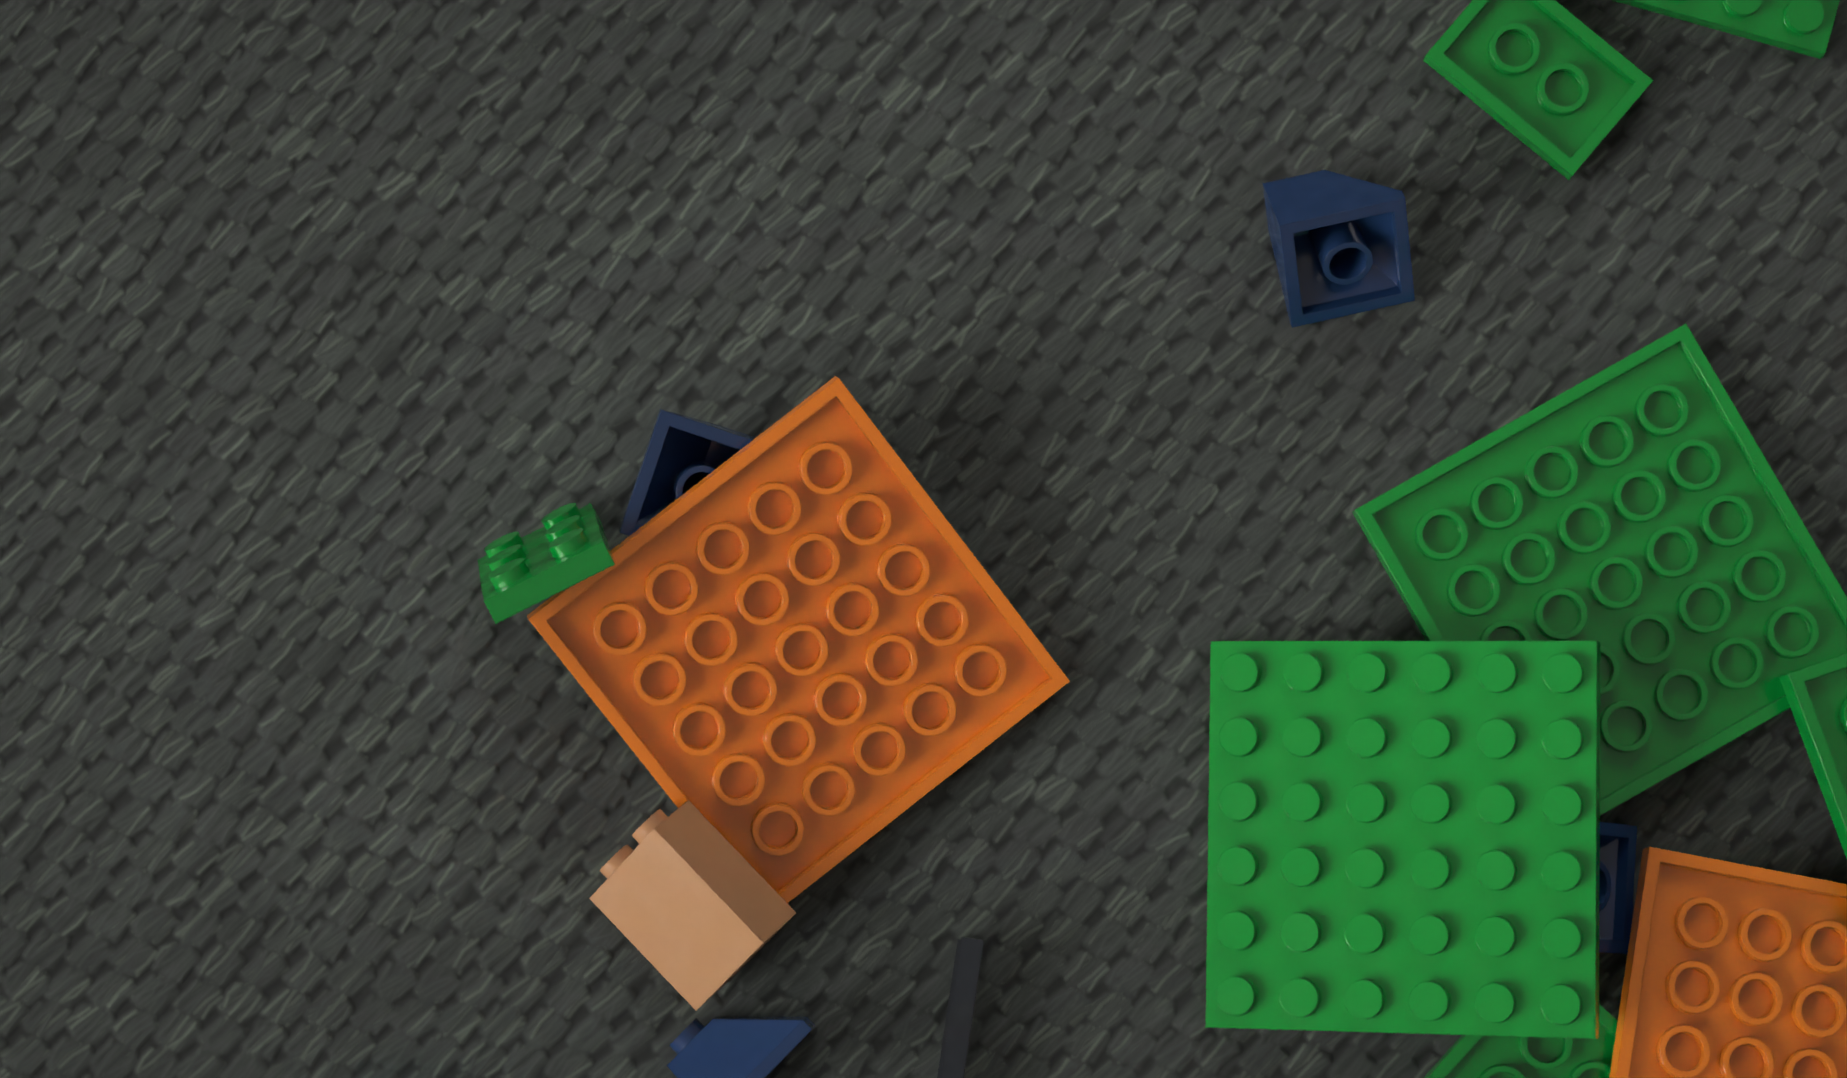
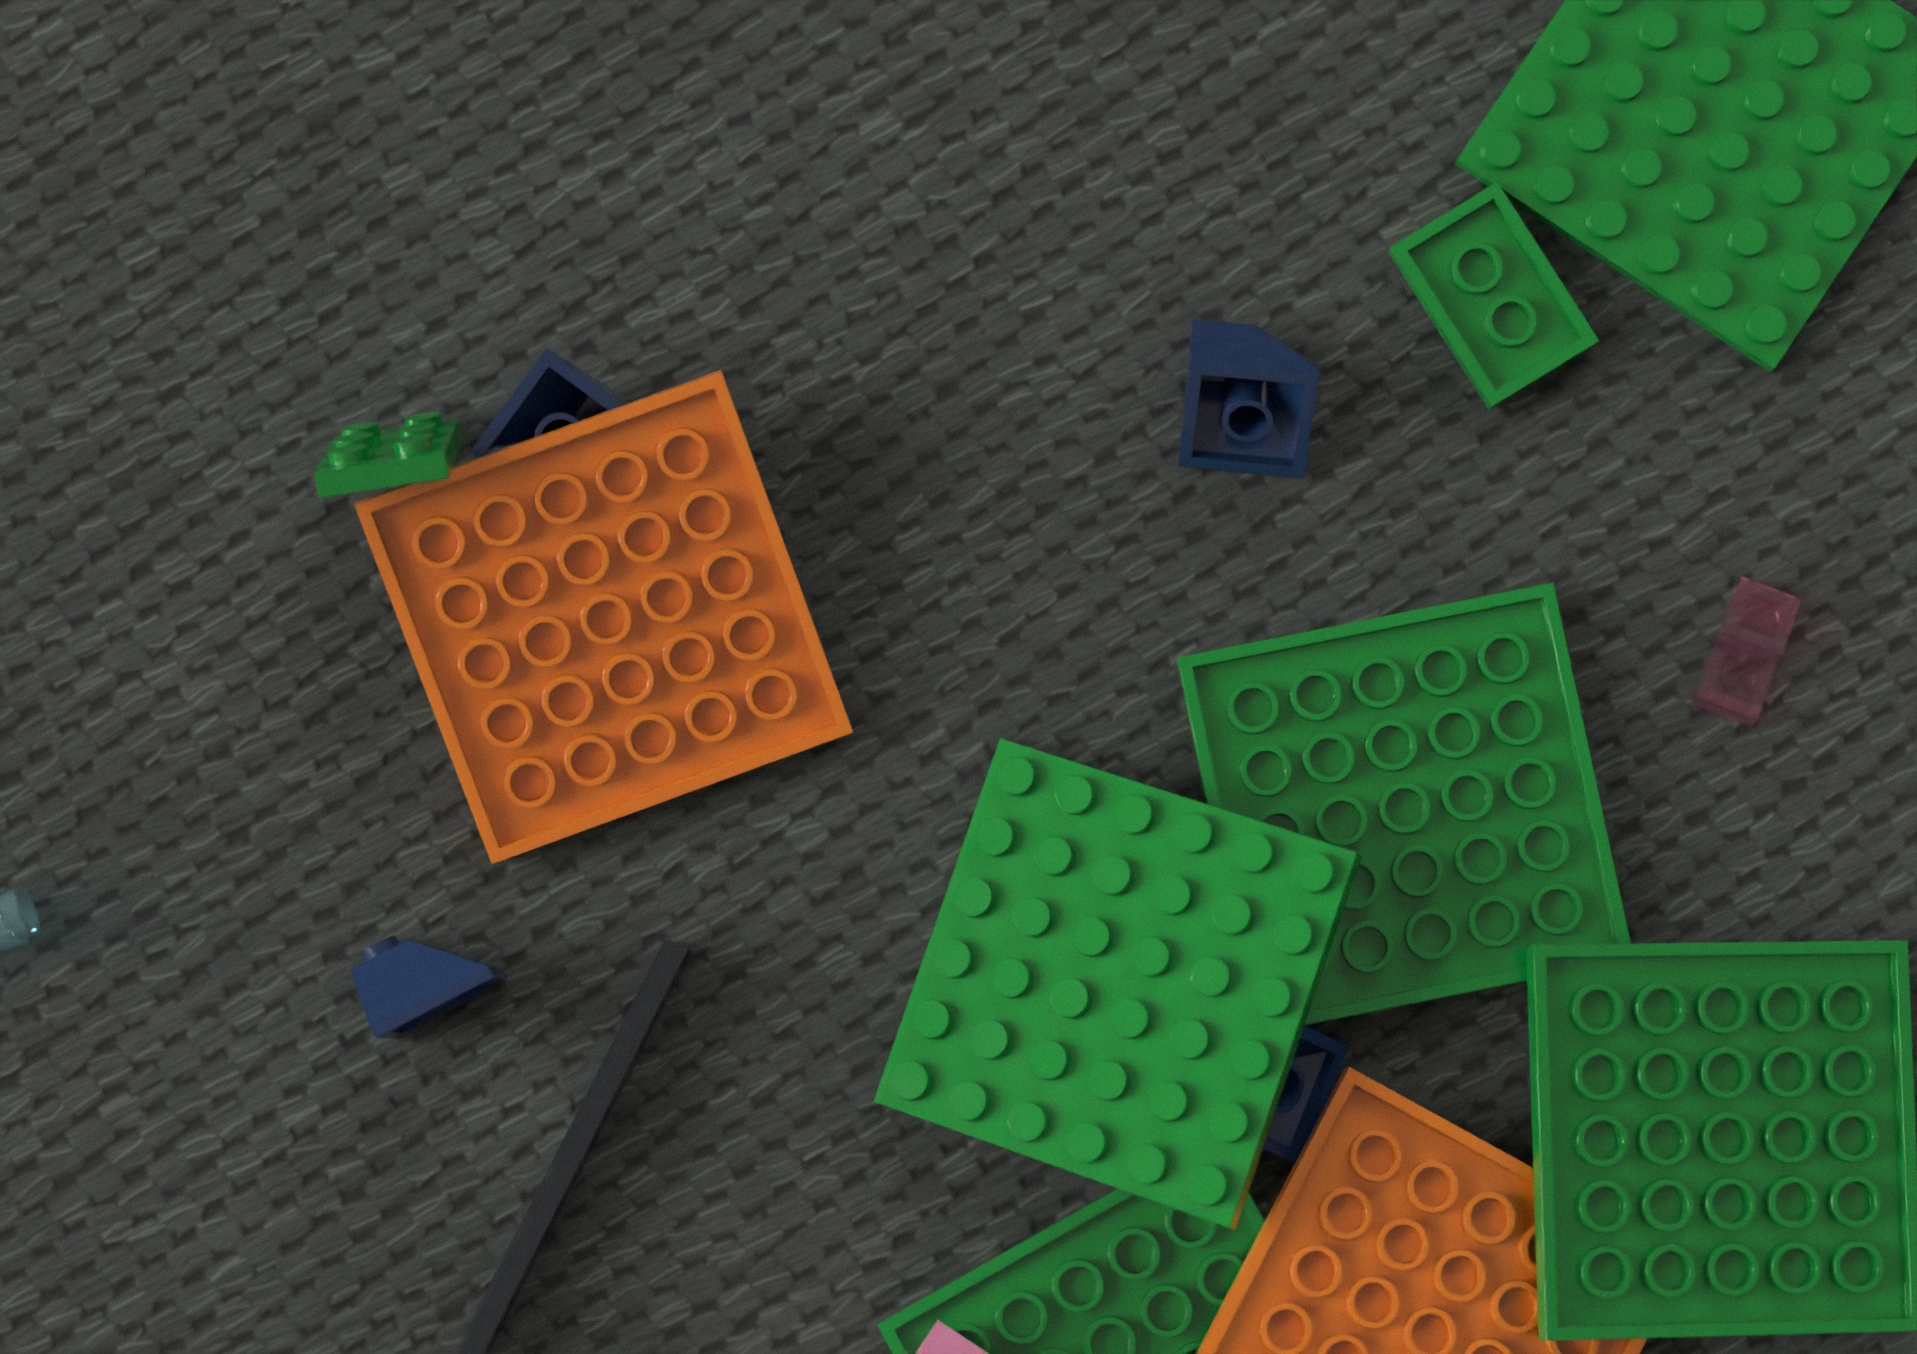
camera: 20 degrees right, 0 degrees up
(690, 902) = (423, 823): medium nougat brick -> none

